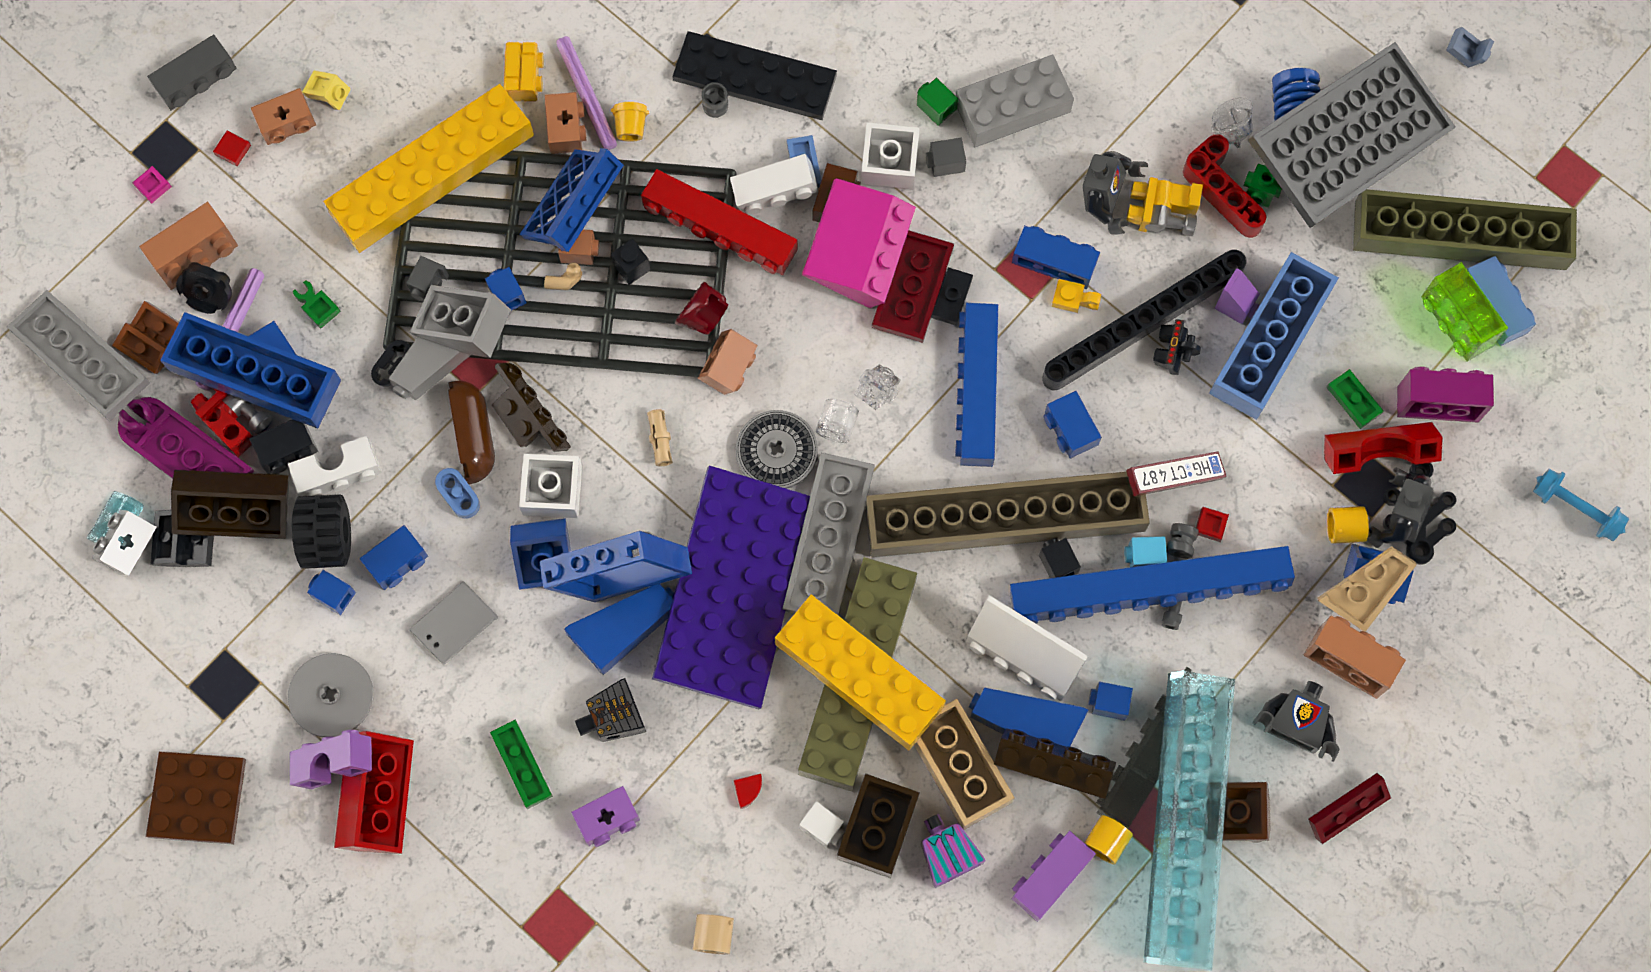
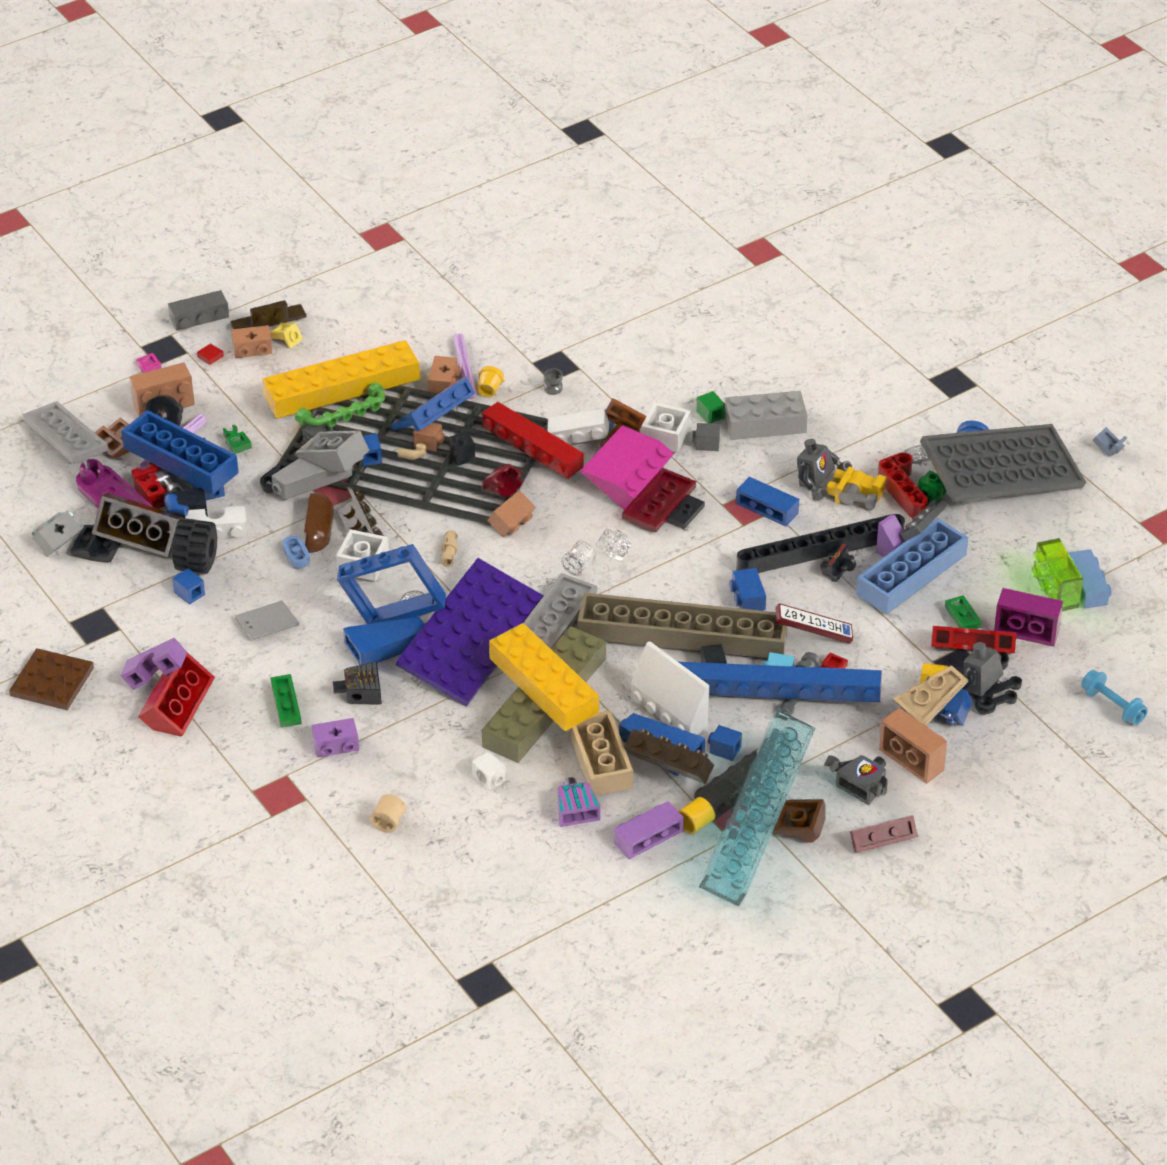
camera: 15 degrees right, 30 degrees down
(269, 464) = (173, 506): none -> blue arm
(292, 65) = (270, 315): none -> dark brown bracket
(309, 688) = (164, 630): light grey piece -> none
(394, 558) = (239, 576): blue brick -> none
(454, 240) = (373, 402): none -> bright green bar
(522, 71) = (425, 344): yellow brick -> none
(535, 543) = (334, 597): blue slope -> none
(748, 789) = (442, 745): red tile -> none
(755, 75) = (588, 375): black plate -> none
(769, 430) = (532, 567): piece -> none
(834, 157) = (620, 412): none -> dark orange slope
(877, 825) = (529, 775): dark brown brick -> none
(978, 385) = (687, 556): blue brick -> none
(1071, 296) = (772, 526): yellow plate -> none
(1272, 255) = (924, 518): none -> dark grey plate
(1465, 229) = (1110, 540): olive brick -> none

